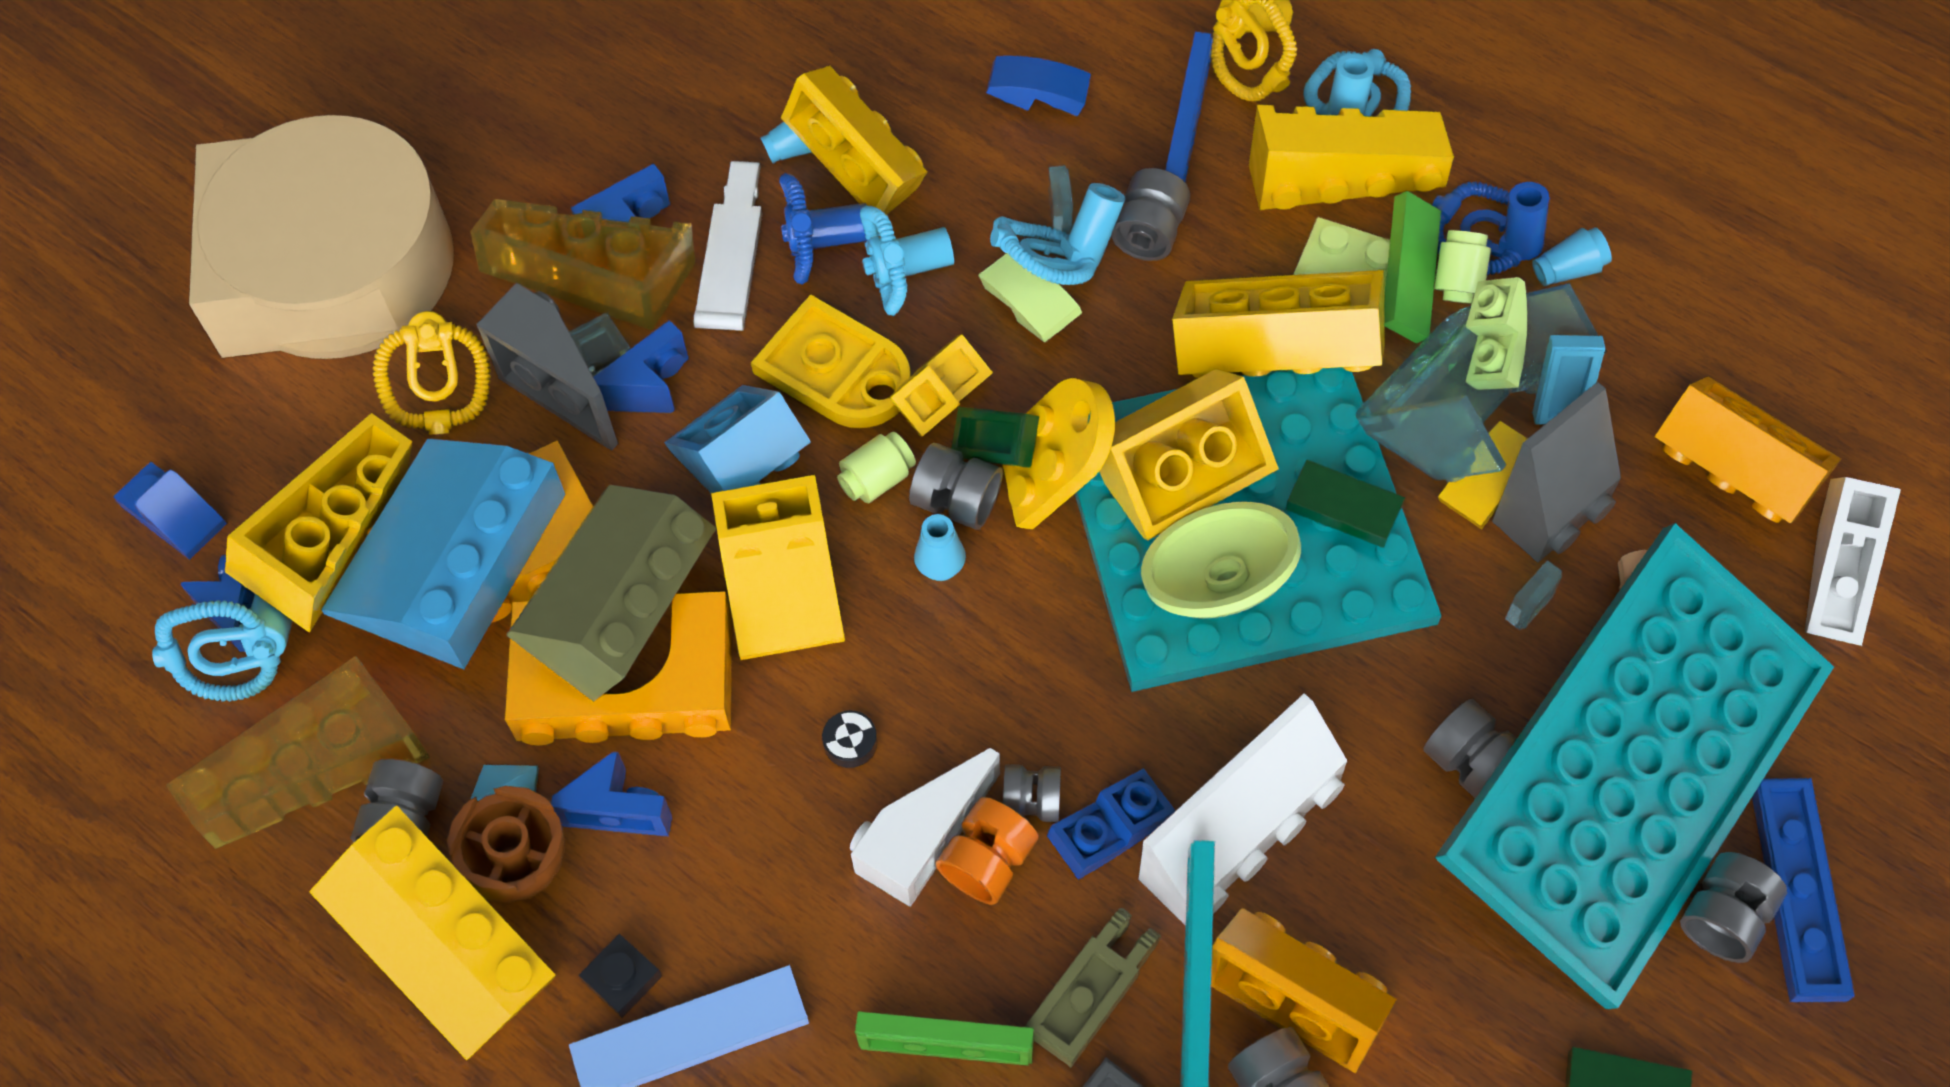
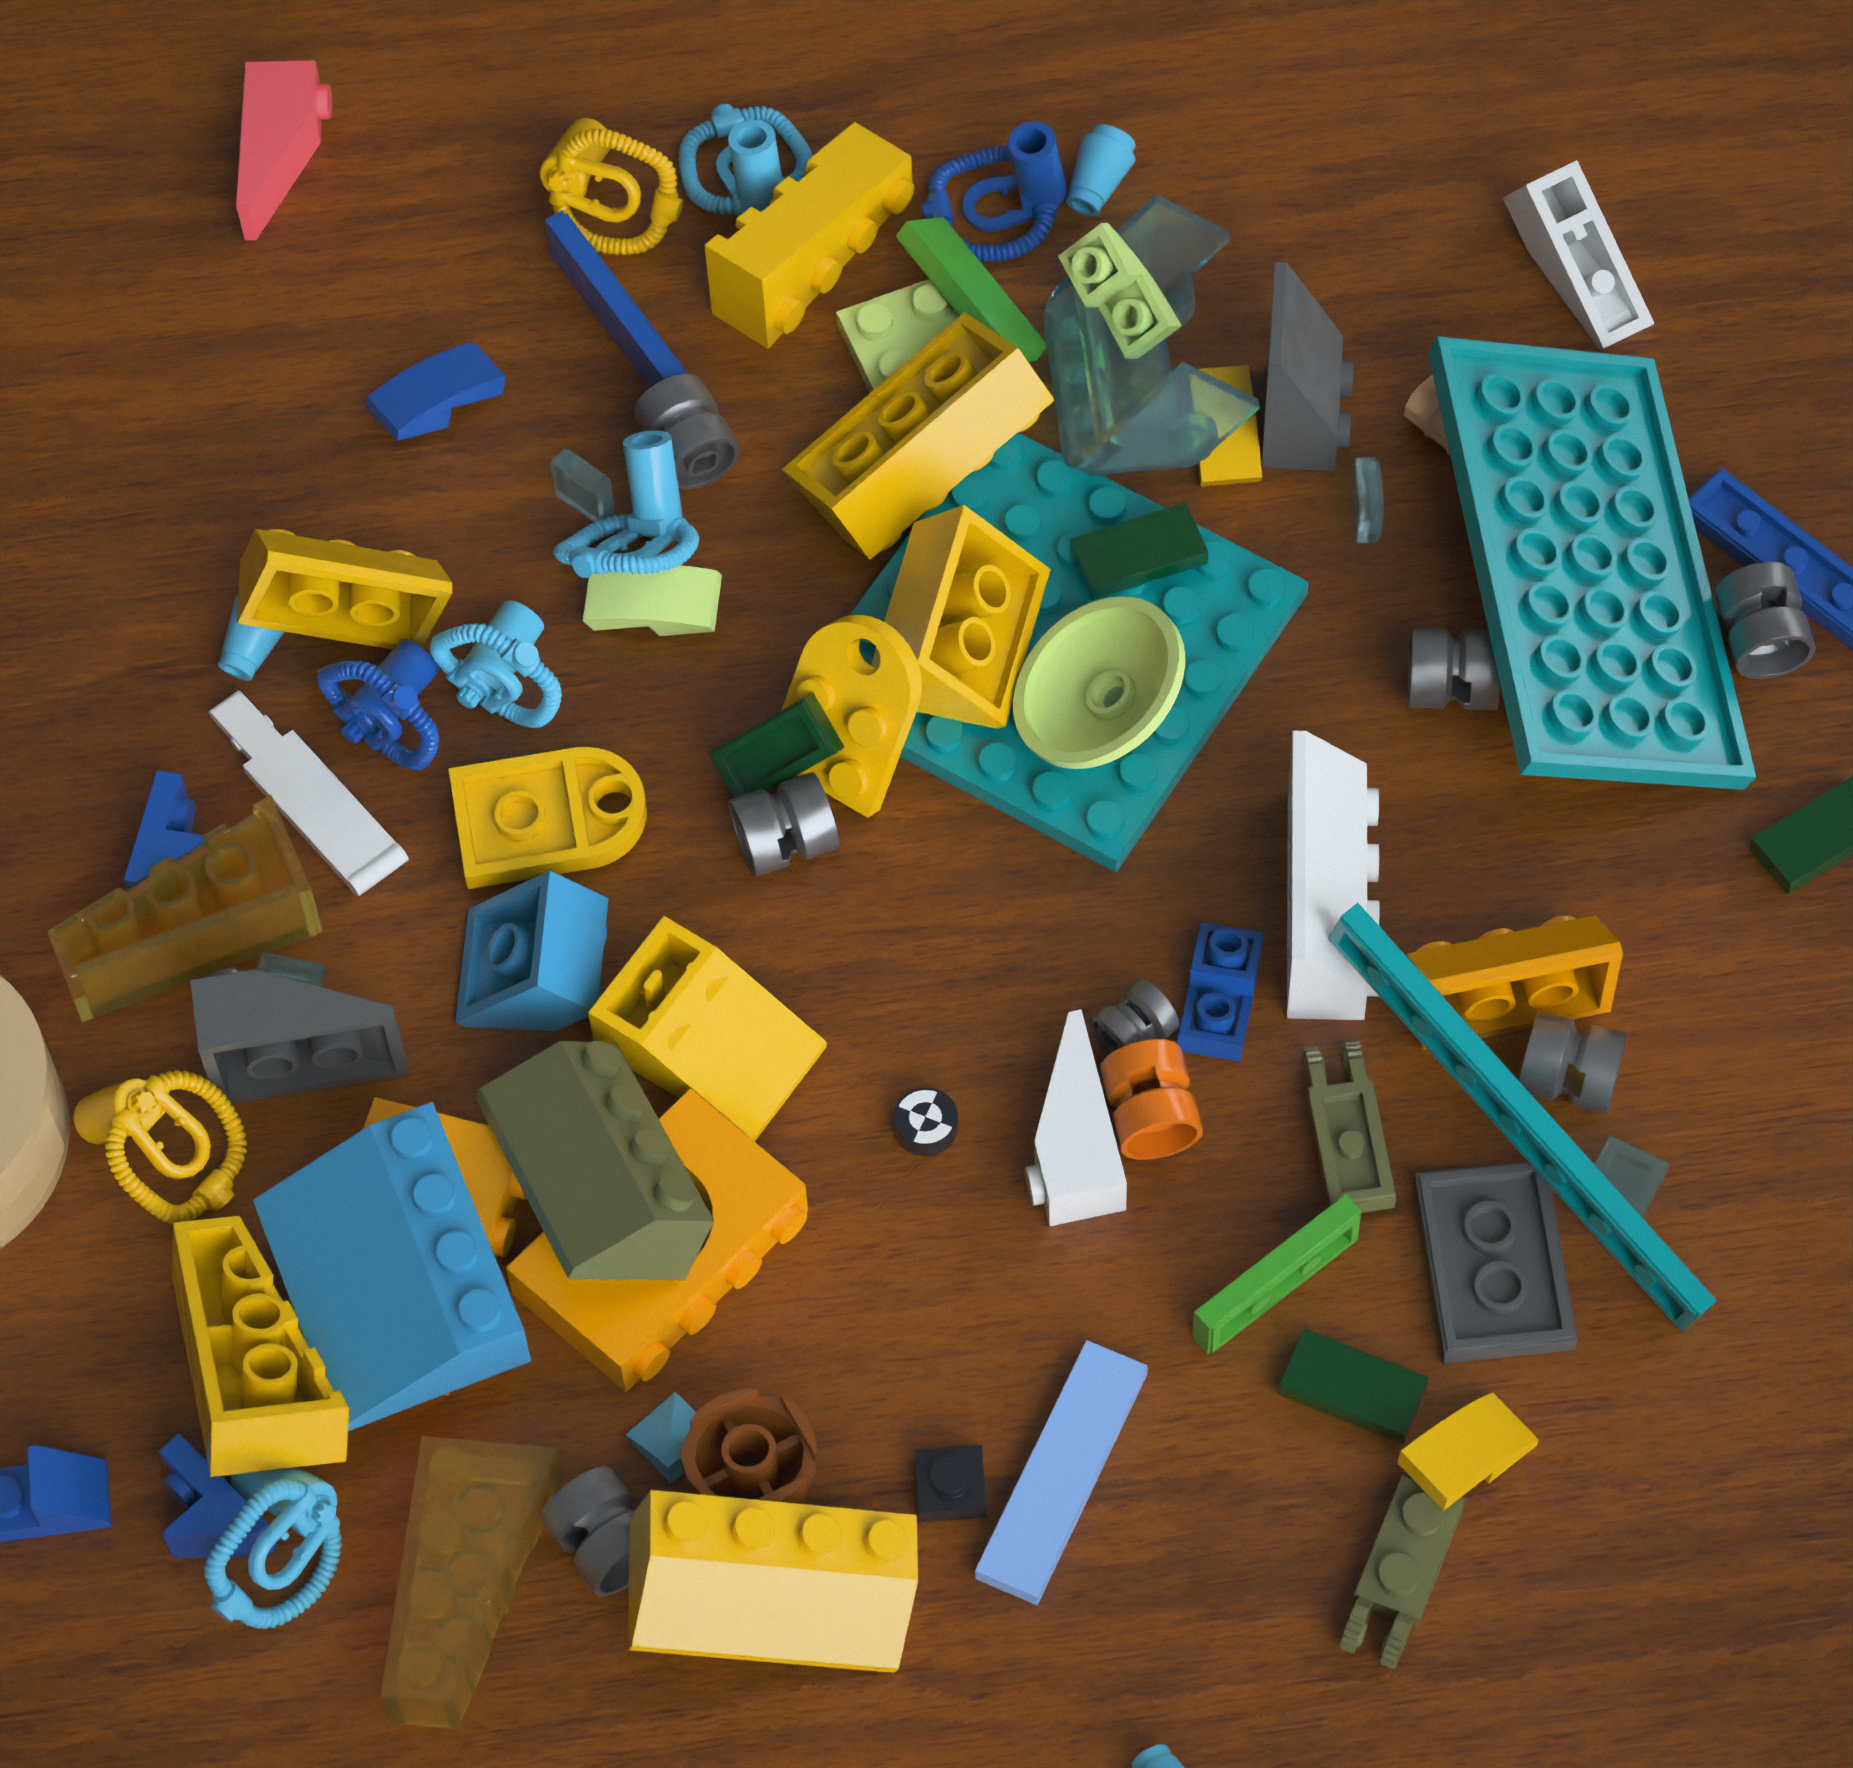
camera: 45 degrees left, 0 degrees up
(599, 804) = (784, 1364): blue slope -> none
(636, 377) = (370, 966): blue slope -> none
(875, 467) = (689, 871): yellowish green brick -> none
(939, 549) = (828, 892): medium azure cone -> none
(940, 385) = (661, 748): yellow slope -> none
(1461, 265) = (1017, 254): yellowish green brick -> none
(1567, 372) = (1216, 284): medium azure tile -> none
(1746, 450) = (1412, 227): light orange slope -> none

